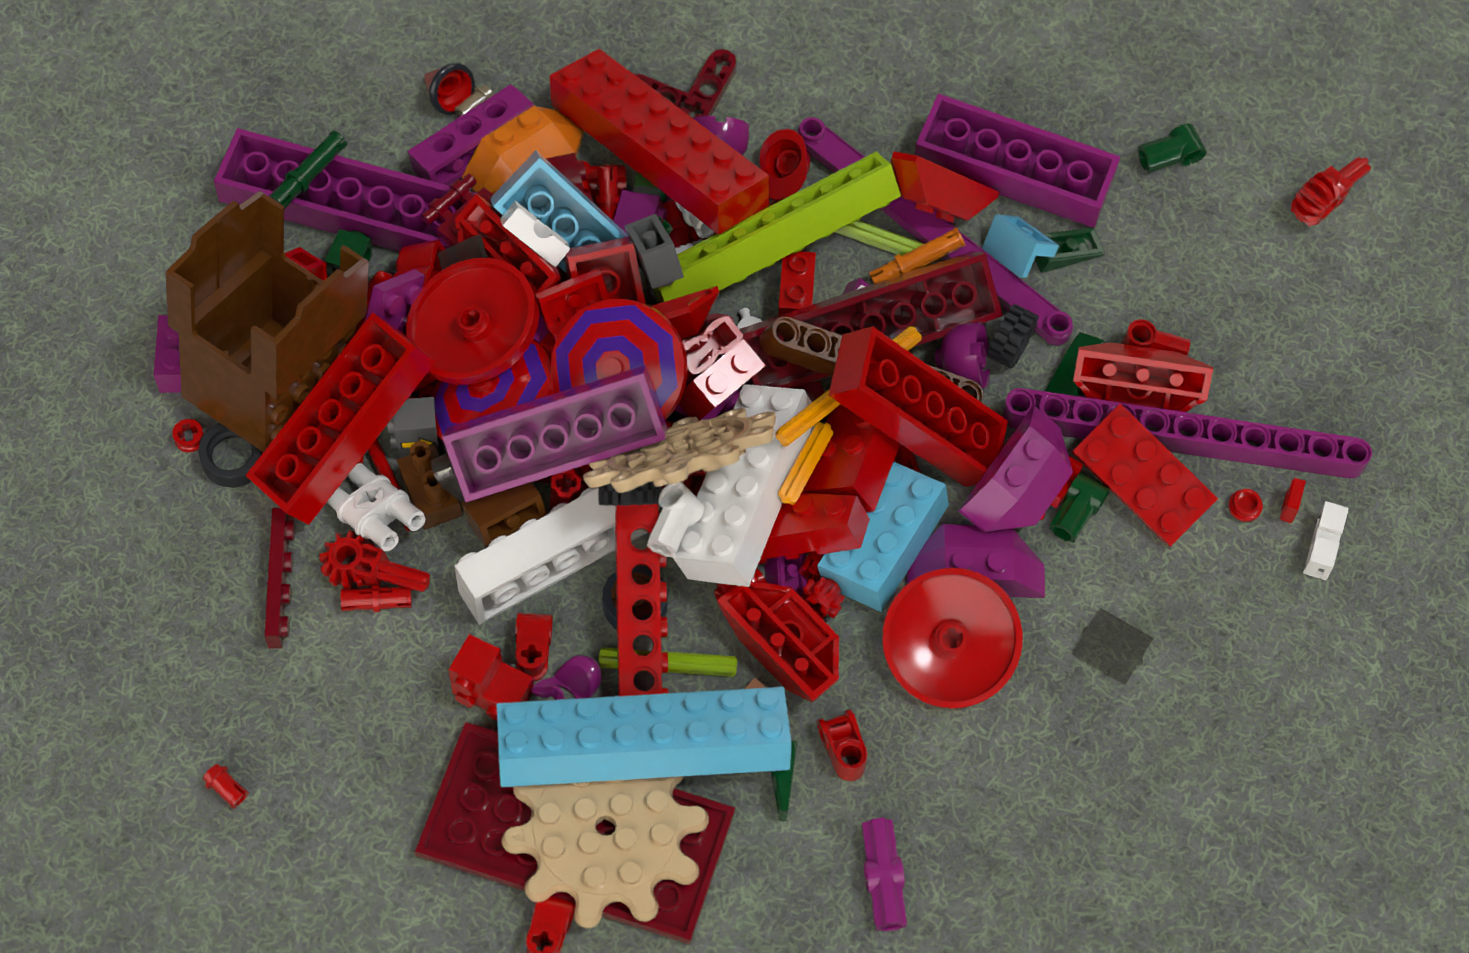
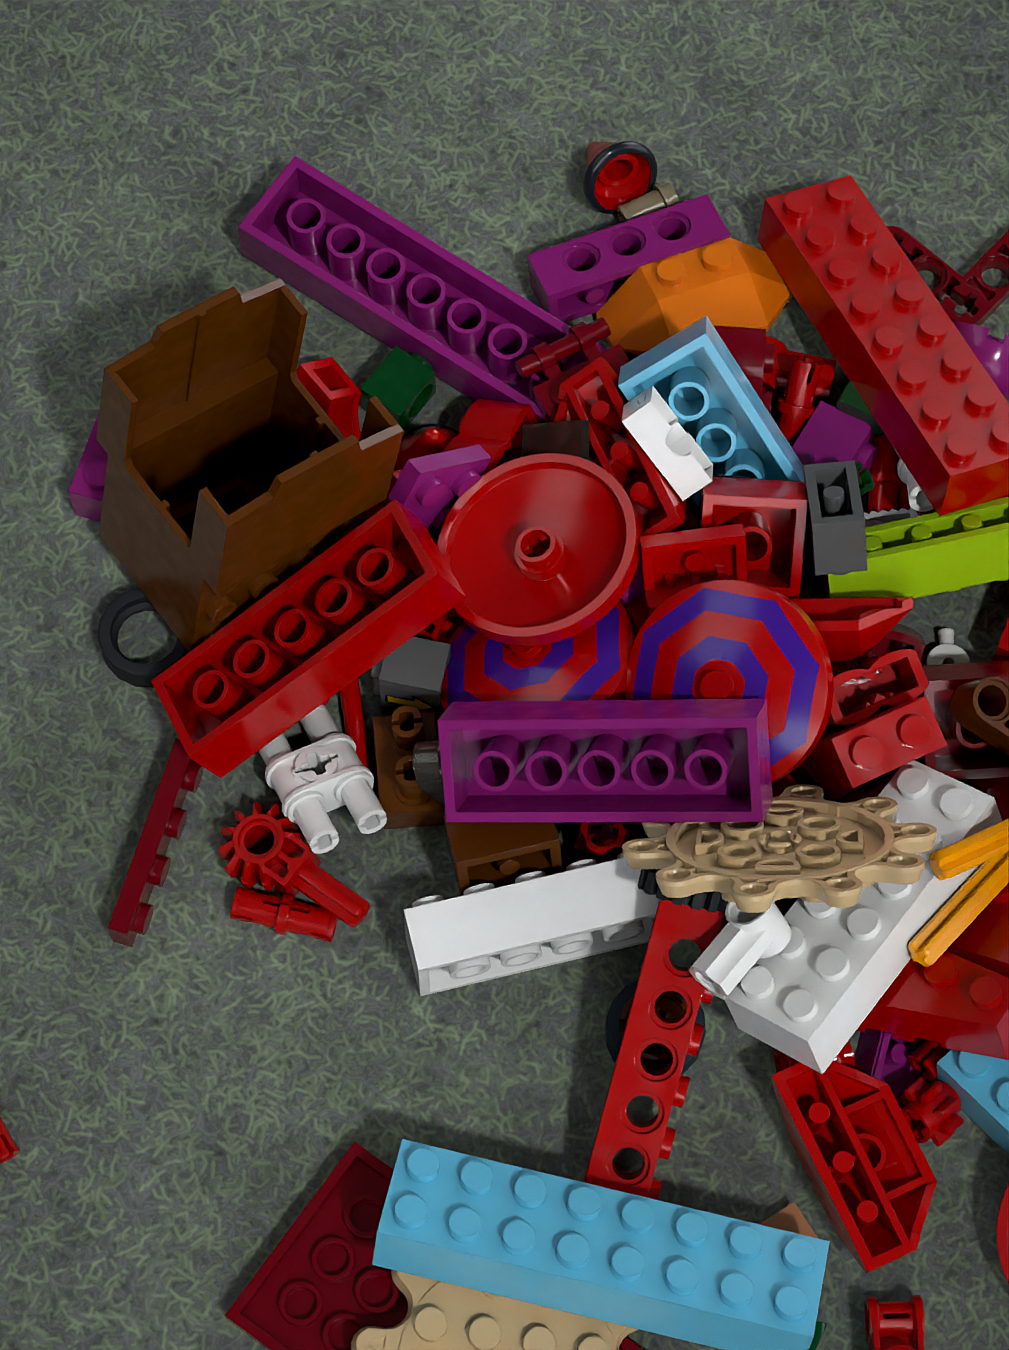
camera: 20 degrees right, 5 degrees up
(178, 433) = (82, 583): red bush -> none
(299, 179) = (356, 260): dark green pin -> none
(484, 680) = (399, 1085): red brick -> none
(533, 641) = (487, 1045): red piece -> none
(577, 675) = (538, 1119): magenta piece -> none
(681, 662) = (692, 1143): lime axle -> none

